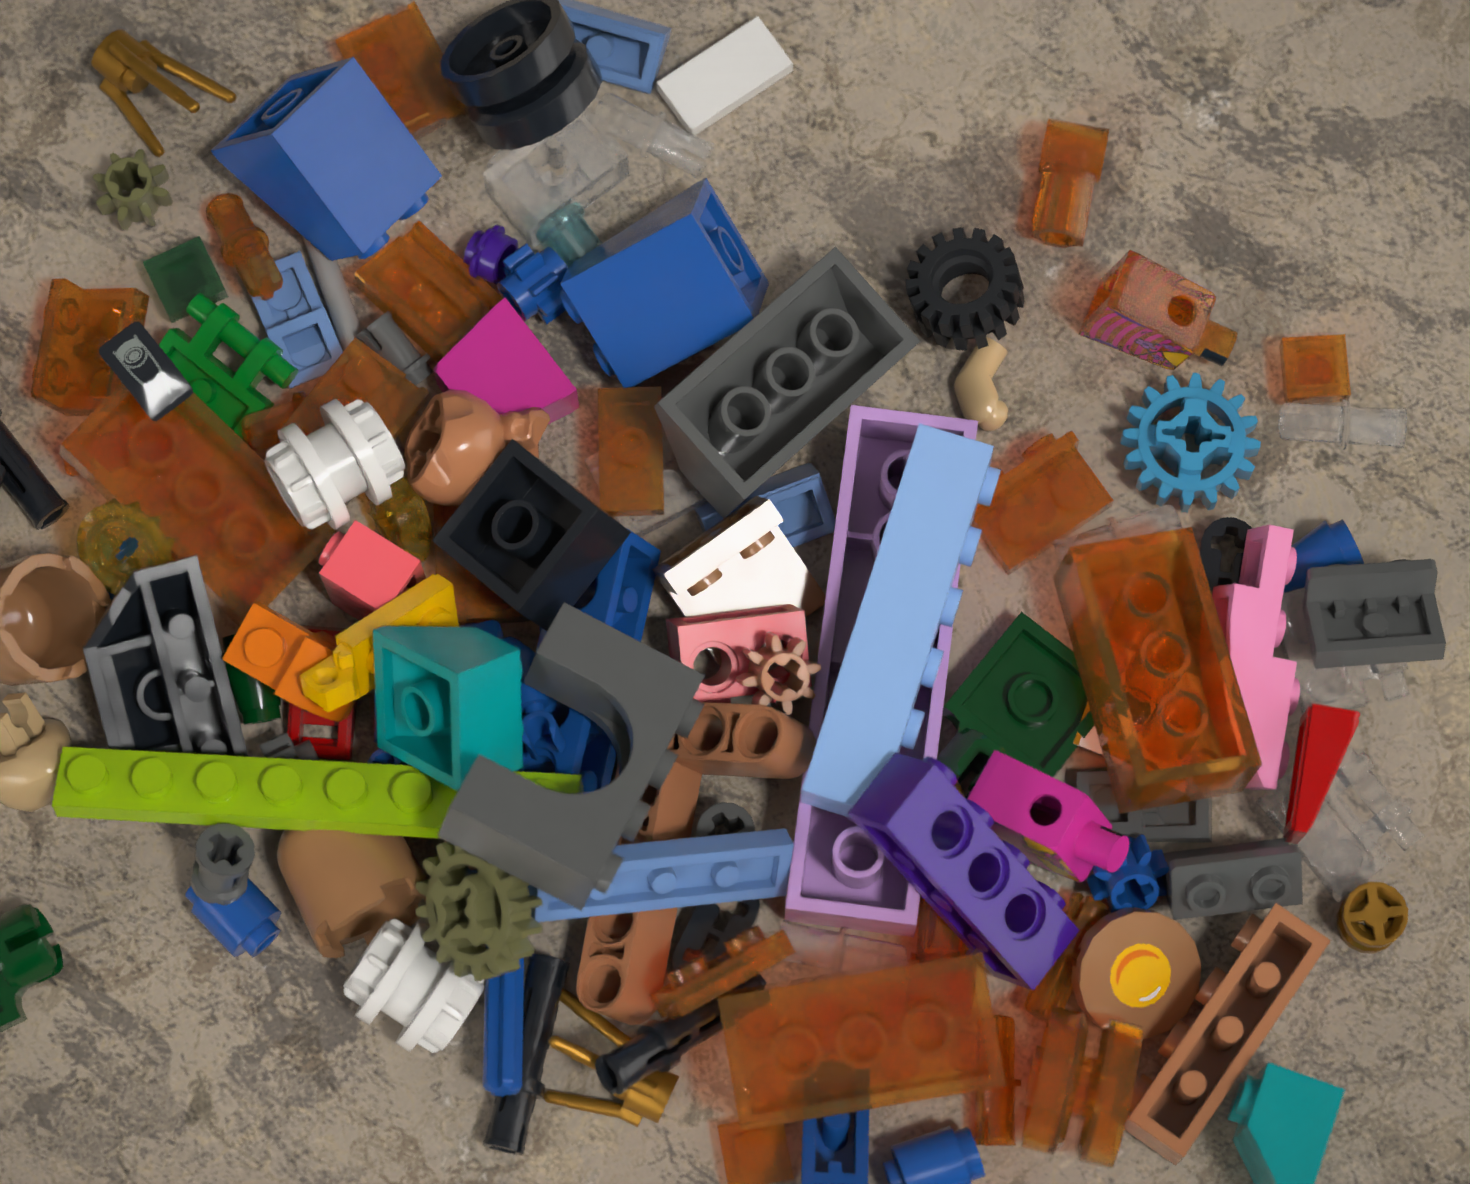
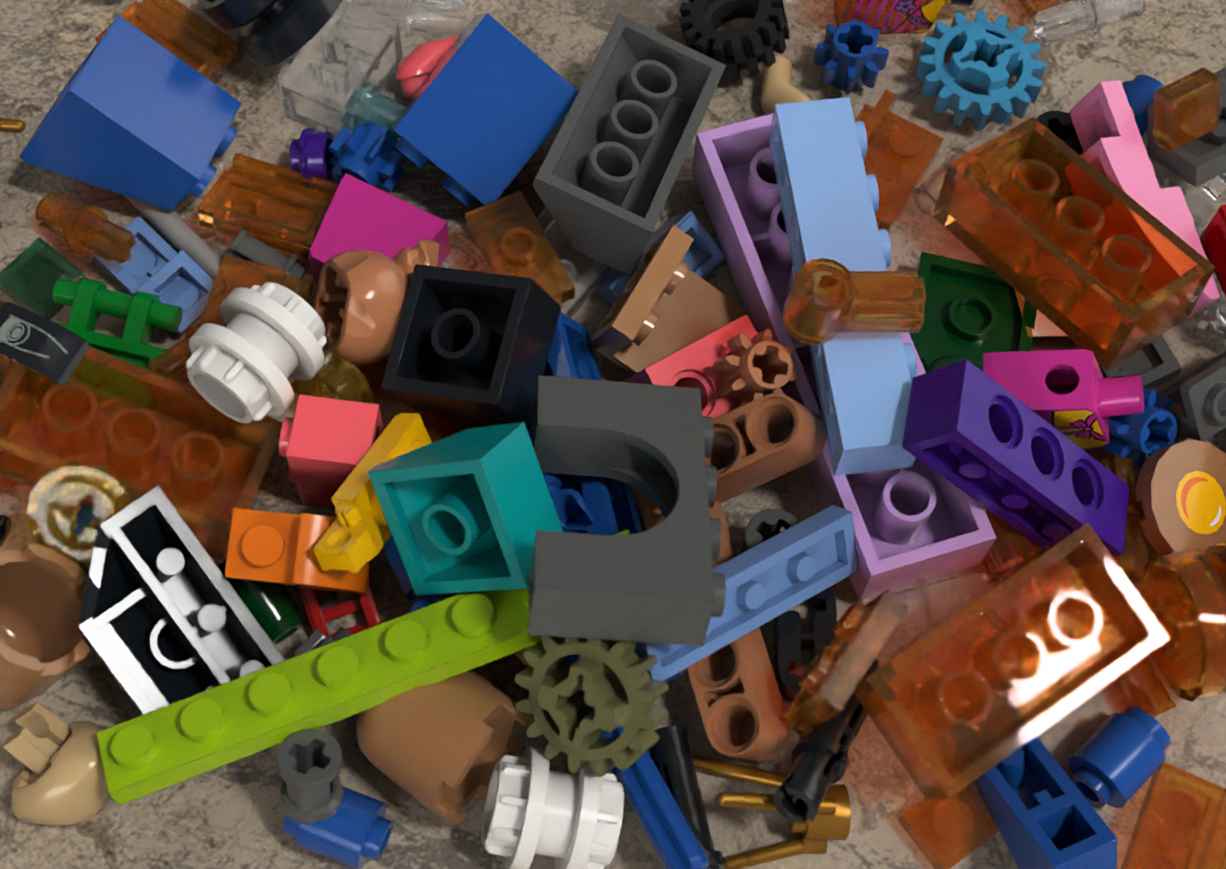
camera: 30 degrees left, 10 degrees down
(639, 196) = (420, 62): none -> coral arm
(883, 664) = (854, 300): none -> clear orange piece
(1057, 358) = (850, 56): none -> blue gear
(1340, 589) = (1186, 109): none -> clear orange plate

